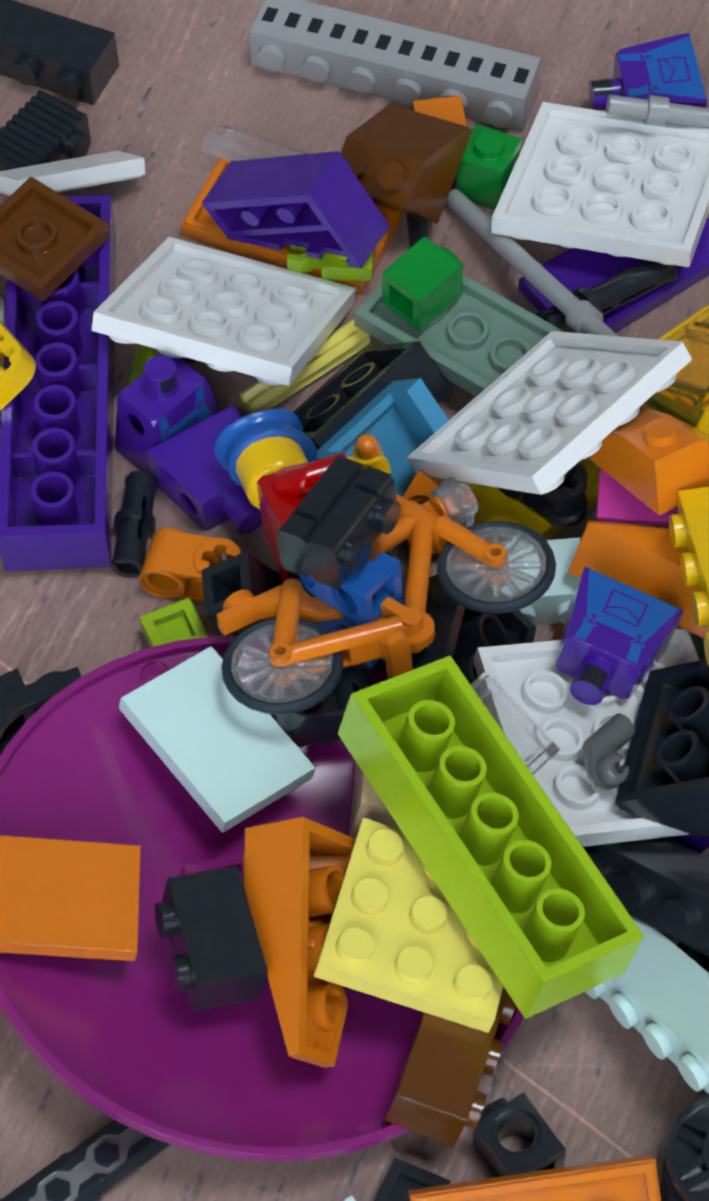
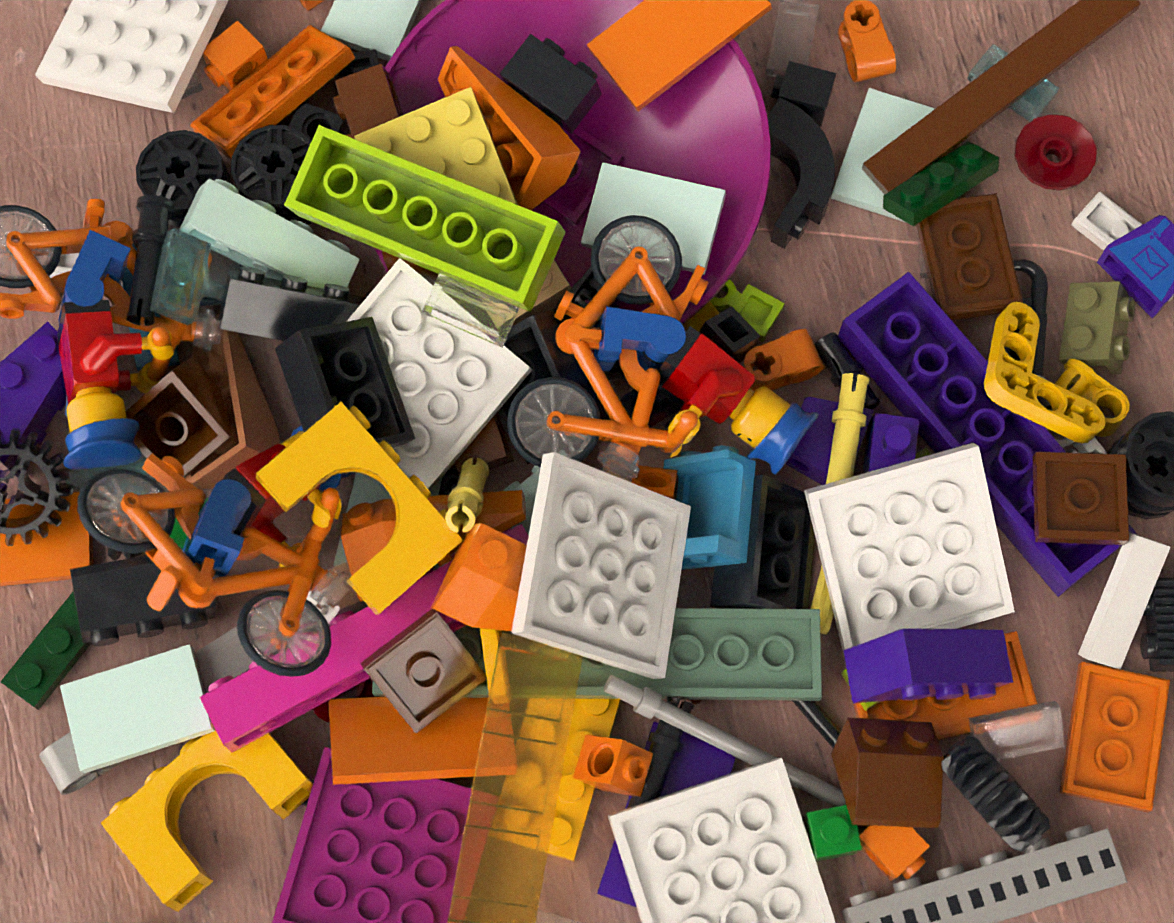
camera: 145 degrees right, 15 degrees up
(171, 110) = (1115, 737): none -> orange tile
(185, 439) = (848, 422): none -> light yellow pin
(324, 91) = (995, 793): none -> black gear
(338, 522) = (657, 338): black brick -> none
(422, 283) = (782, 651): green brick -> none
(601, 752) = (400, 342): dark grey arm -> none
(606, 1125) = (268, 165): none -> black wheel
(612, 637) = (447, 428): dark purple torso -> none
(648, 538) = (465, 497): none -> light yellow pin
(669, 304) = (613, 765): none -> orange brick

